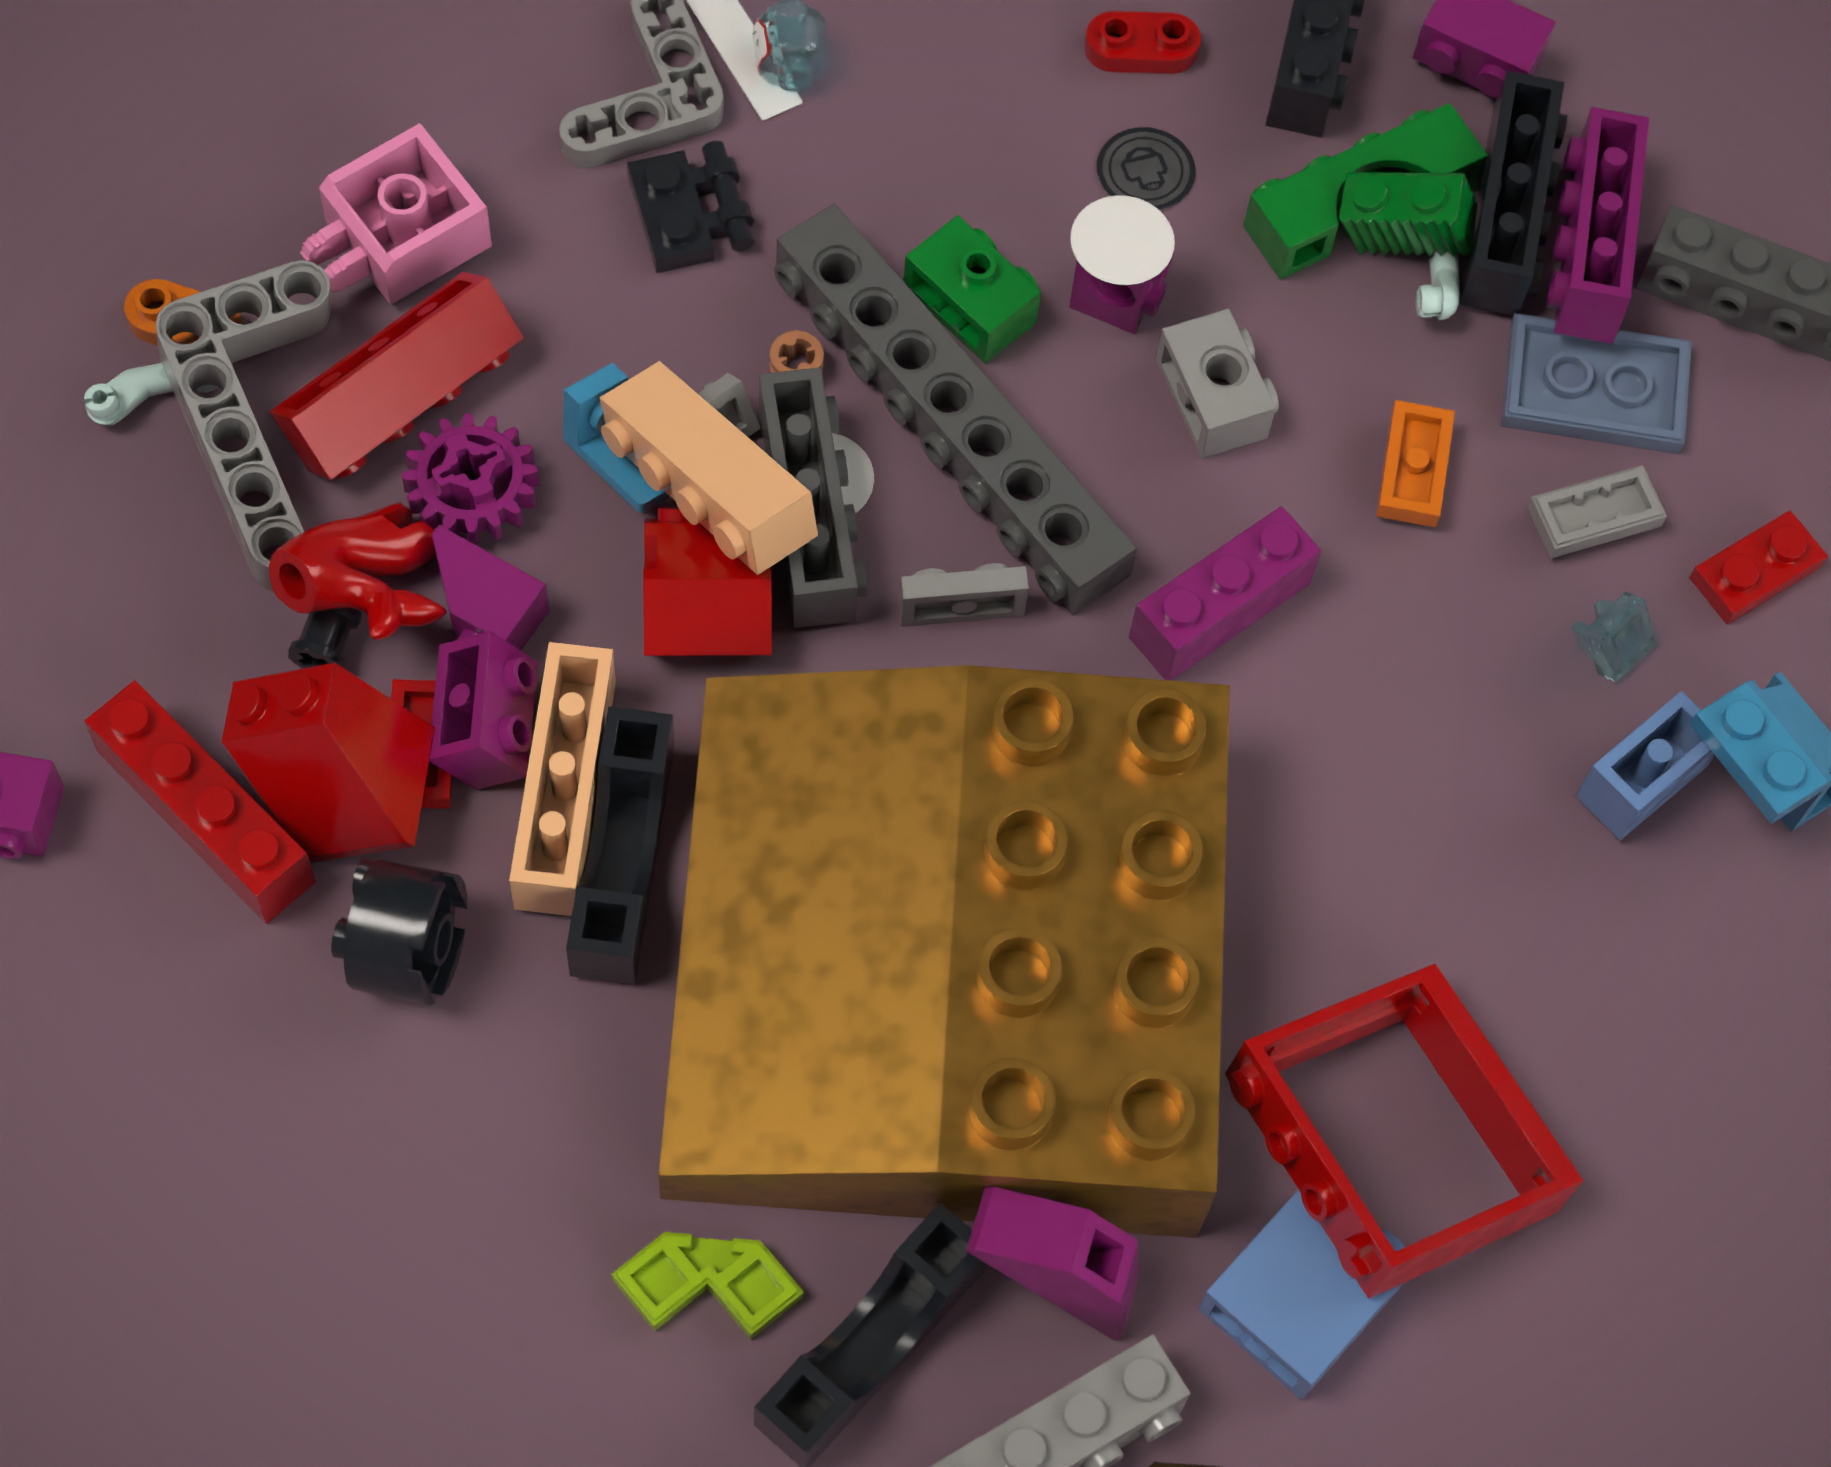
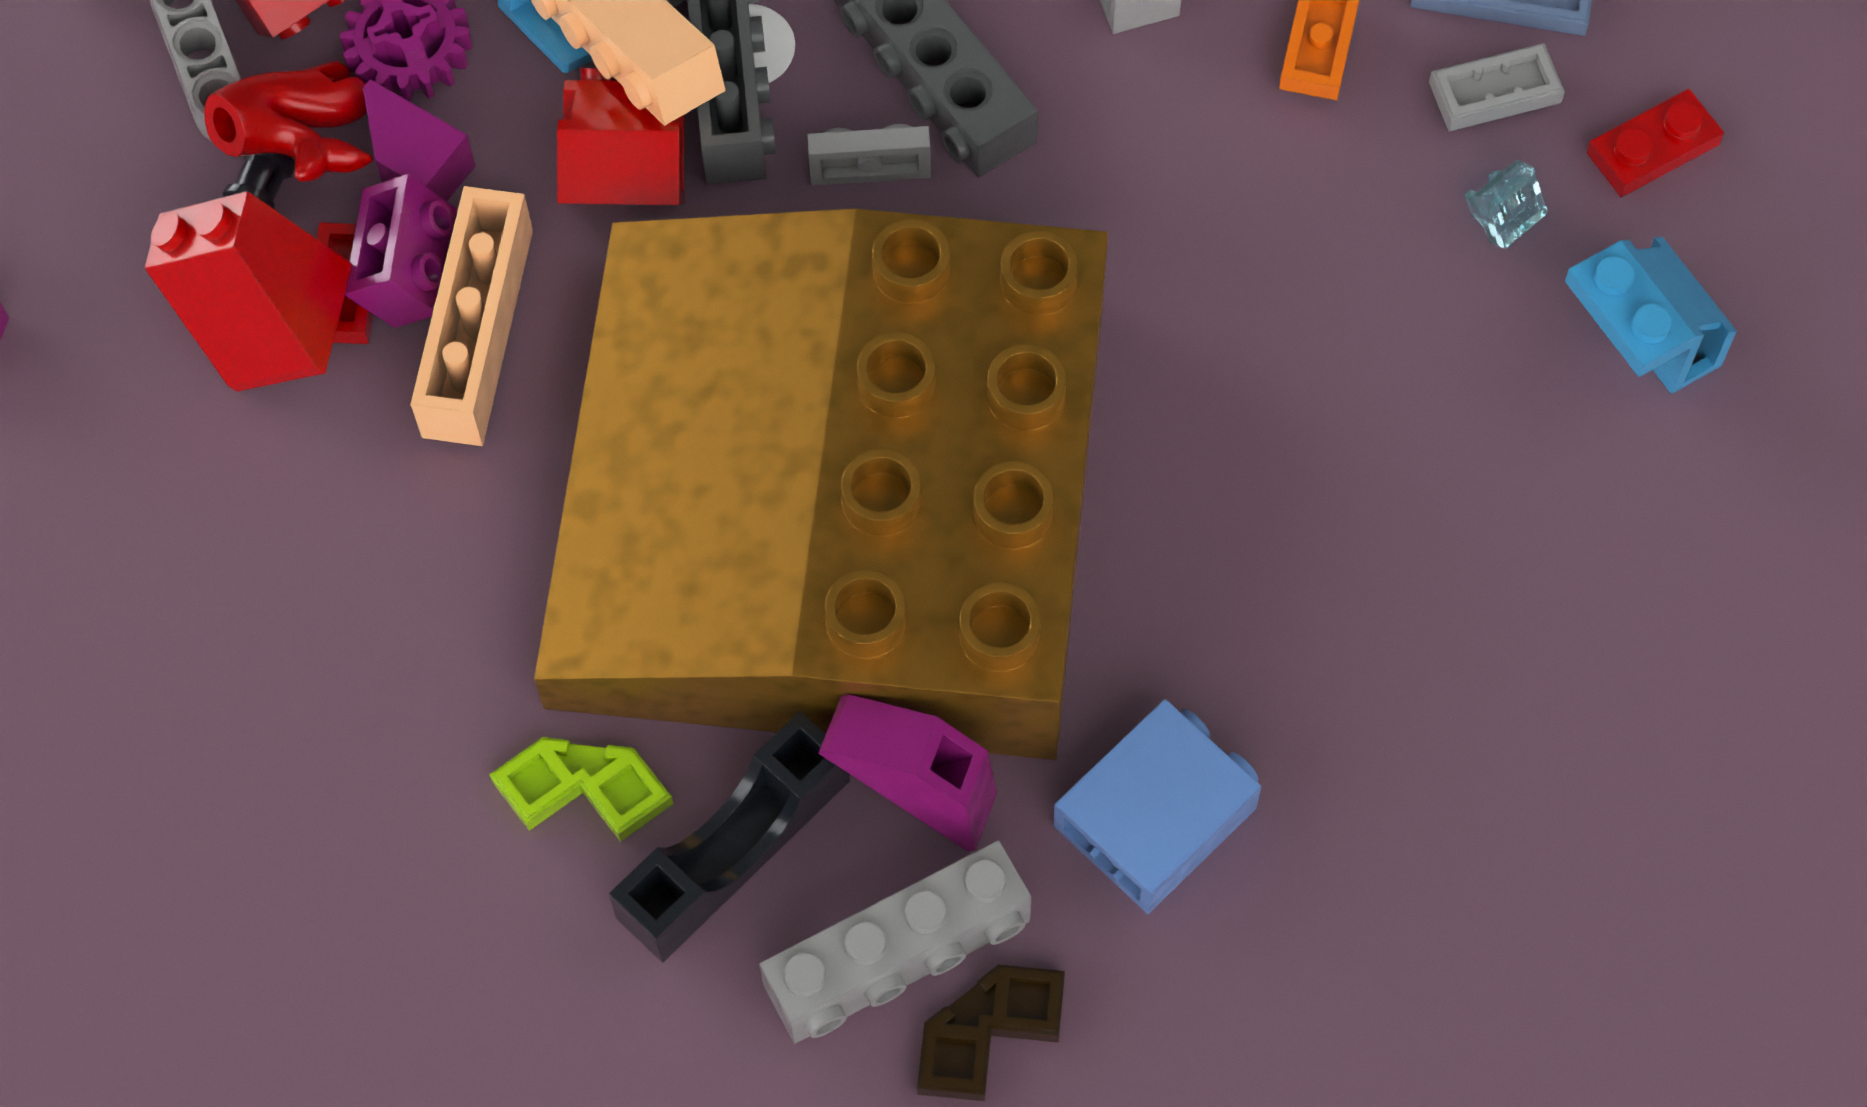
camera: 10 degrees right, 0 degrees up
(200, 801) = (131, 330): red brick -> none
(401, 931) = (309, 451): black brick -> none
(623, 846) = (515, 425): black arch -> none
(1224, 593) = (1123, 155): magenta brick -> none
(1473, 1077) = (1333, 611): red window -> none
(1646, 768) = (1524, 327): medium blue brick -> none

